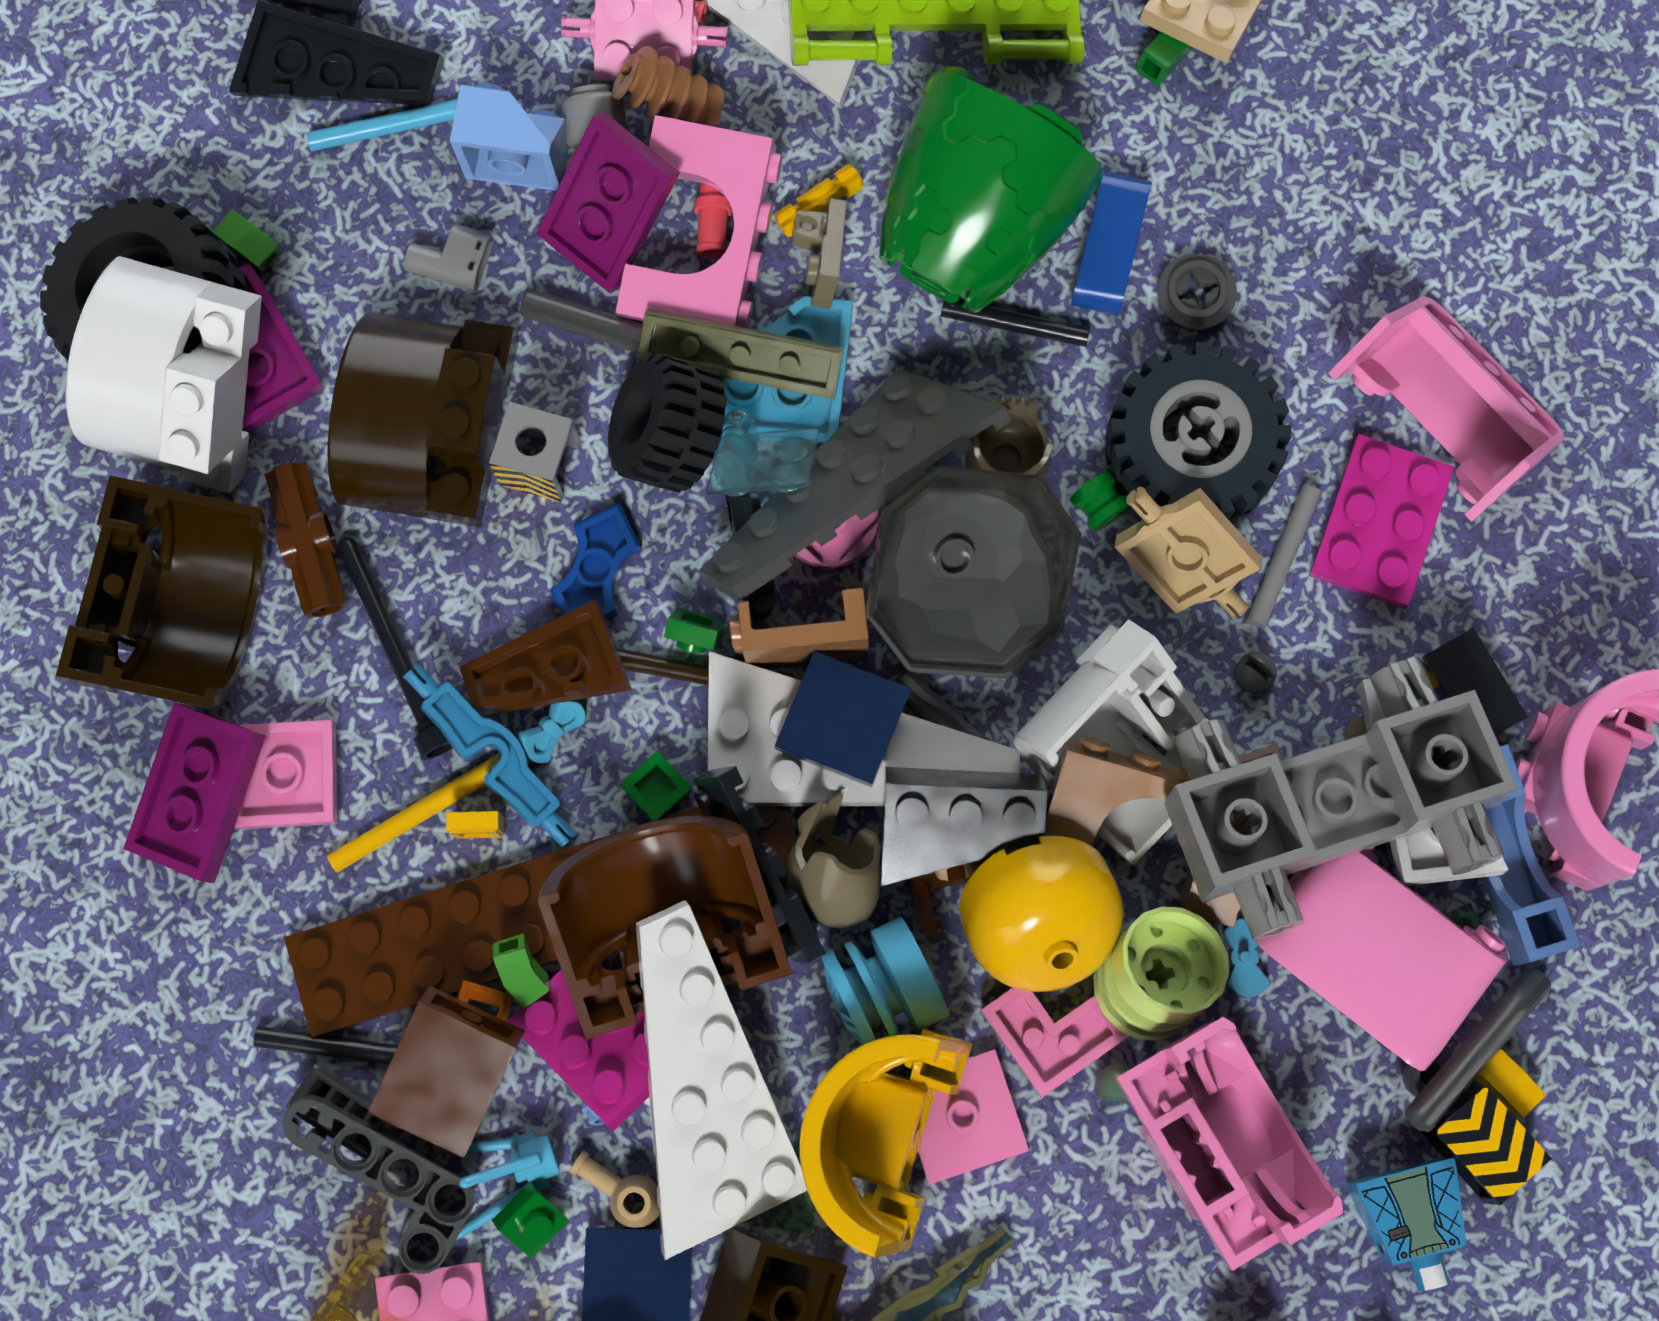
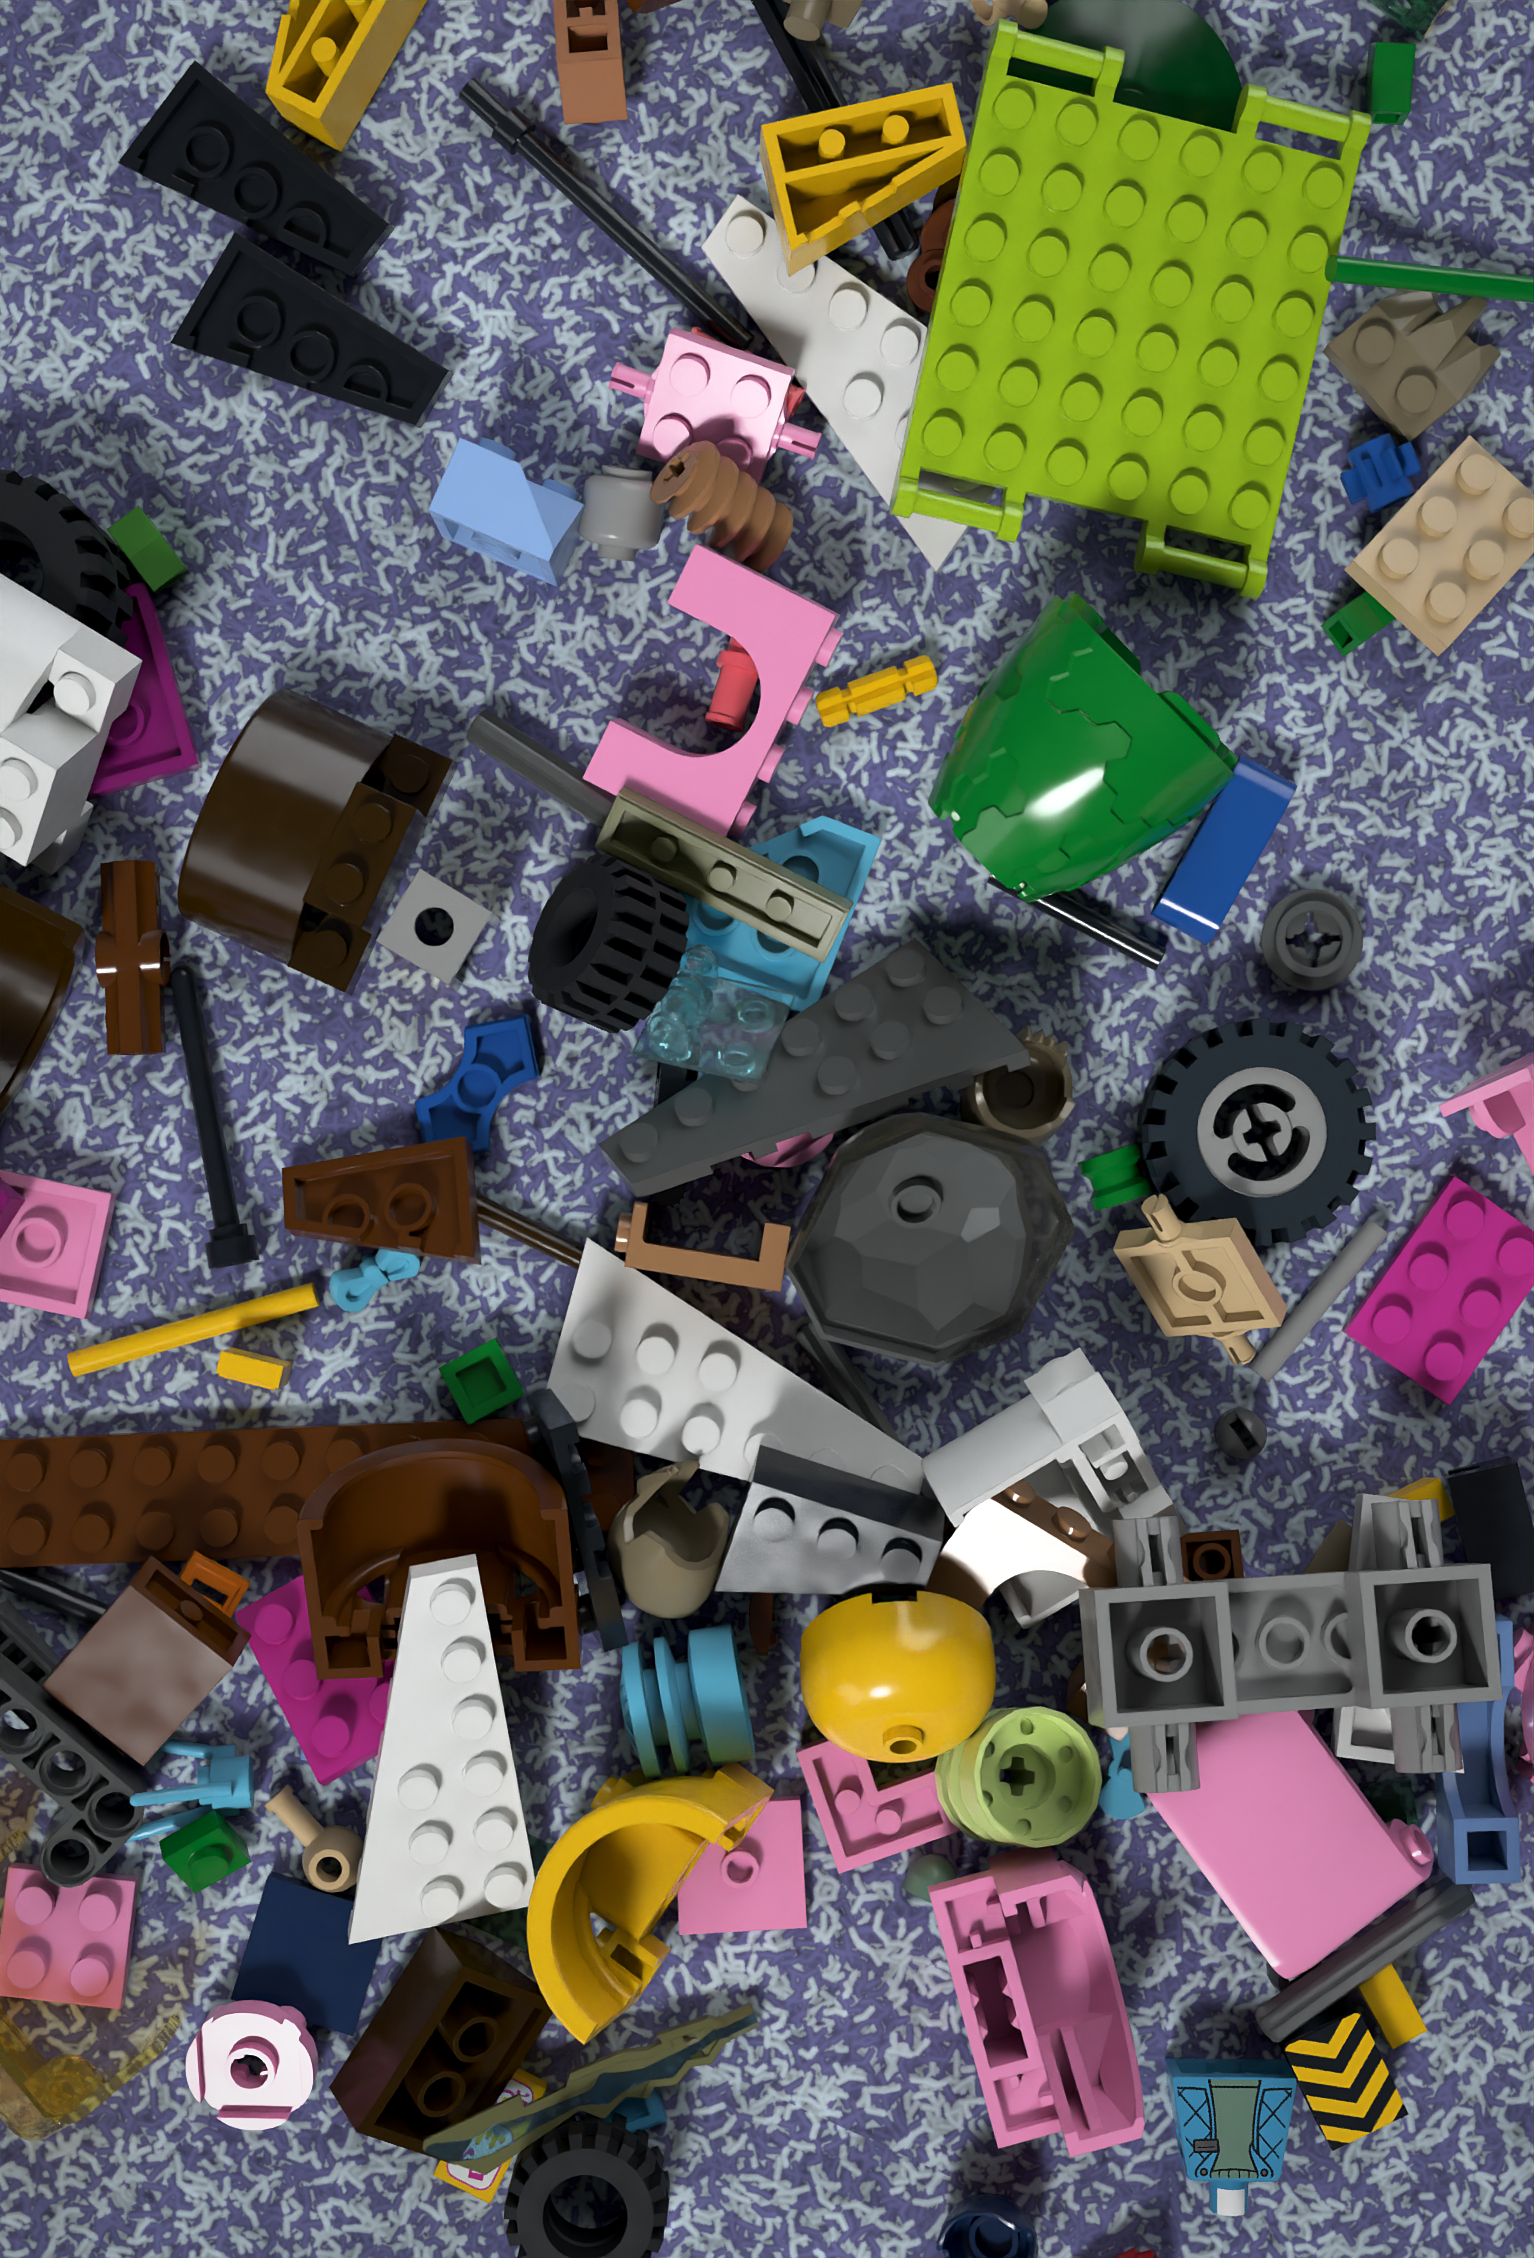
camera: 10 degrees right, 10 degrees up
(381, 125) = (367, 439): medium azure bar -> none
(457, 262) = (407, 650): light grey piece -> none
(471, 733) = (276, 1261): dark azure piece -> none
(519, 970) = (263, 1562): bright green piece -> none
(607, 201) = (609, 633): magenta plate -> none
(694, 630) = (577, 1201): green plate -> none
(822, 234) = (870, 744): dark tan hinge -> none
(842, 719) = (725, 1372): dark blue tile -> none

